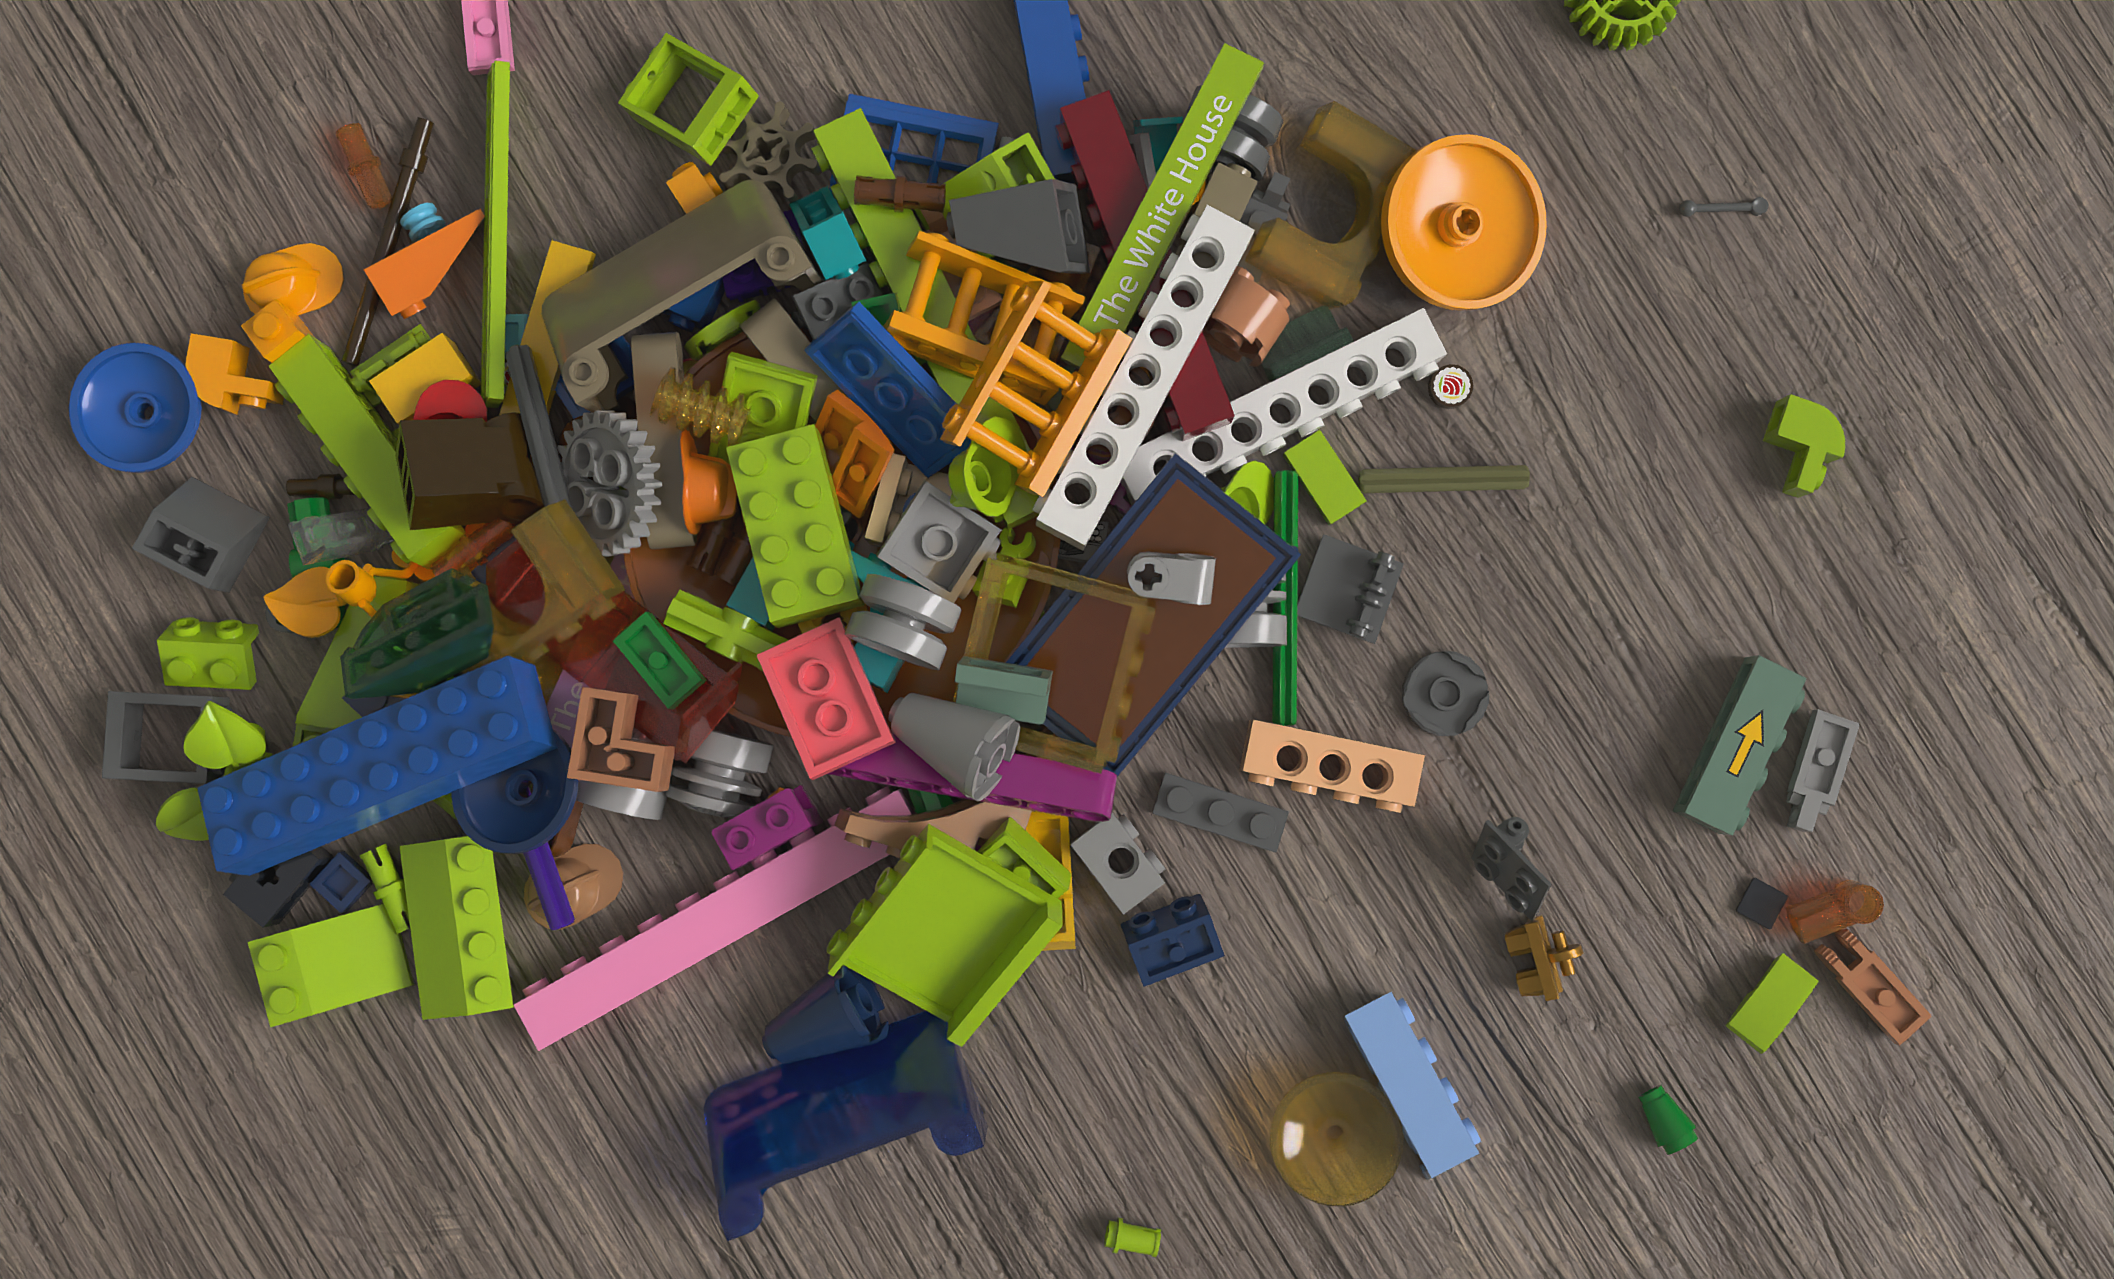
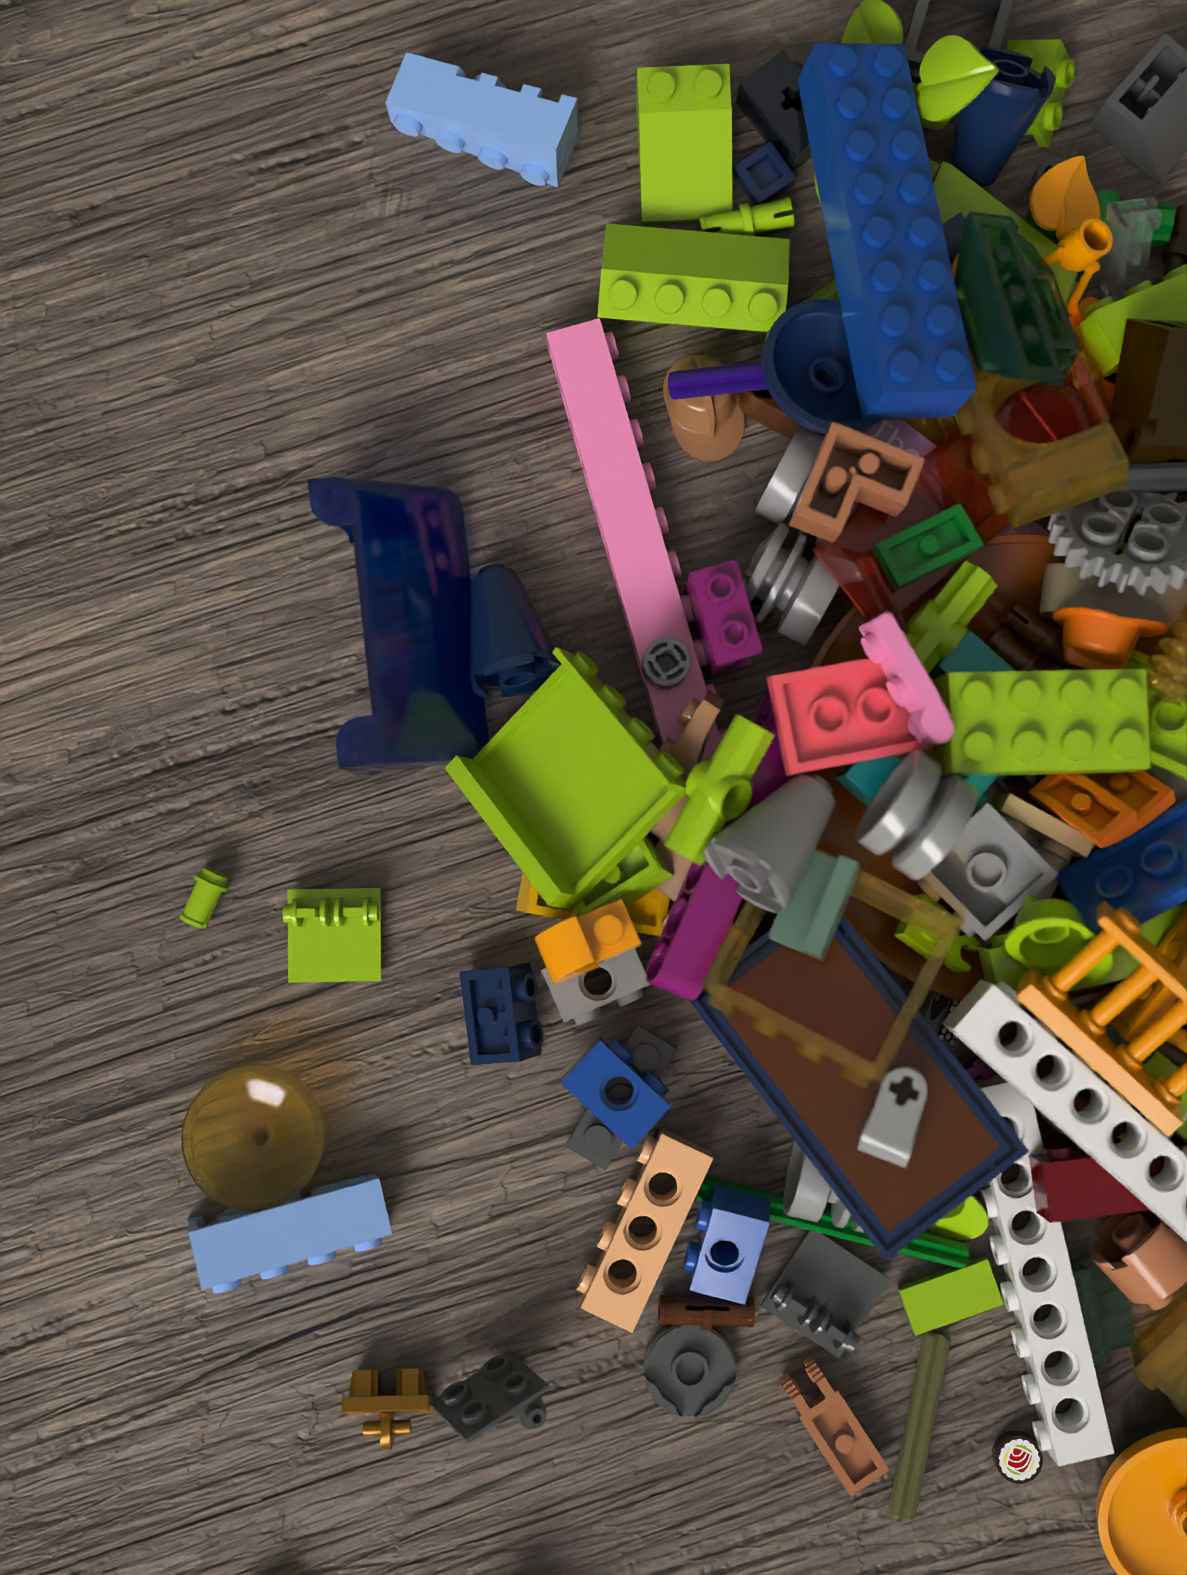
camera: 100 degrees right, 0 degrees up
(241, 683) = (999, 116): none -> dark blue cone
(348, 1157) = (485, 118): none -> light blue wedge
(785, 656) = (908, 680): none -> bright pink hinge
(827, 869) = (665, 672): none -> dark grey wheel
(921, 799) = (719, 789): none -> lime piece
(1090, 887) = (586, 941): none -> light orange brick
(1137, 1109) = (334, 935): none -> lime hinge
(1215, 847) = (627, 1117): none -> blue brick
(1349, 684) = (728, 1269): none -> brick
(1391, 691) = (705, 1311): none -> reddish brown pin
(1467, 551) = (836, 1432): none -> nougat hinge
(1667, 1120) = (184, 1493): green cone -> none

